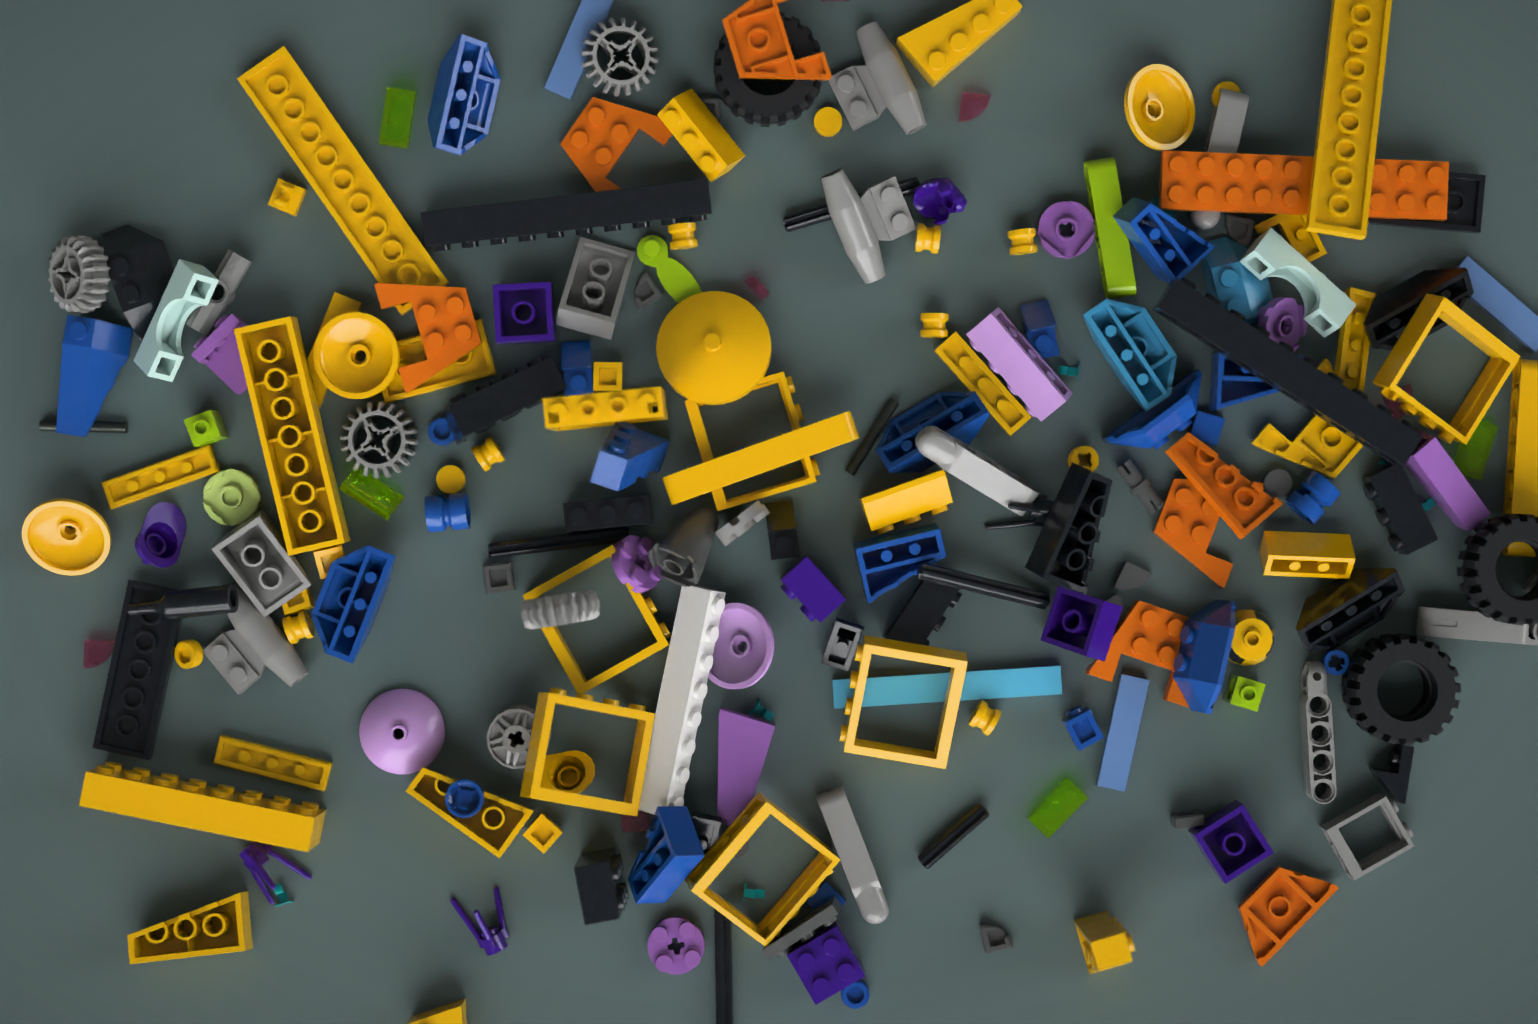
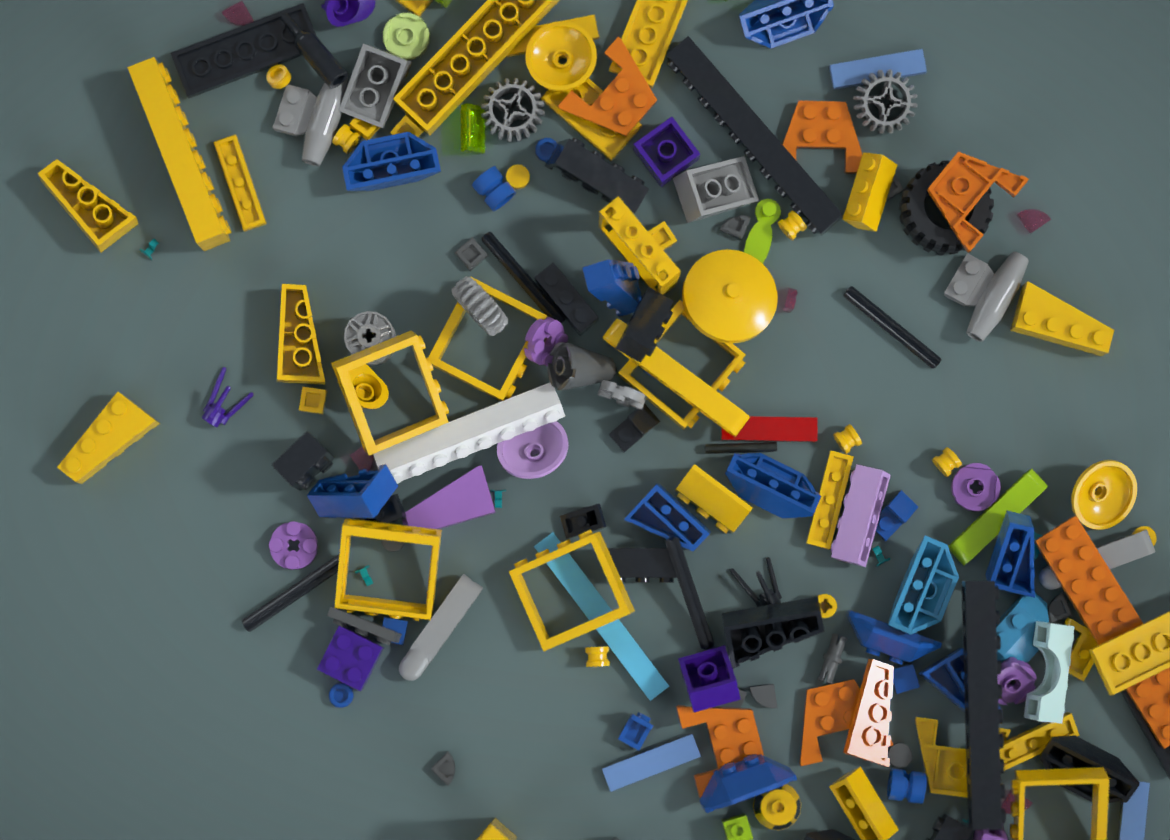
camera: 50 degrees right, 5 degrees down
(255, 858) = (166, 214): dark purple plant -> none
(421, 725) = (331, 269): lavender dish -> none
(464, 798) = (304, 326): blue wheel -> none
(488, 453) = (552, 190): yellow wheel -> none
(577, 367) = (655, 211): blue slope -> none
(690, 455) = (645, 325): none -> black brick
(812, 589) = (608, 473): dark purple brick -> none
(828, 122) = (937, 273): yellow tile -> none
(866, 219) = (887, 342): light grey plate -> none
(878, 388) = (776, 429): none -> red tile
(927, 238) = (904, 394): yellow wheel -> none
(938, 199) = (936, 384): dark purple hair -> none
(953, 836) = (498, 690): black axle -> none
(972, 105) = (1016, 366): clear pink tile -> none
(975, 468) = (767, 531): piece -> none
(1057, 807) = (567, 751): clear neon green plate -> none

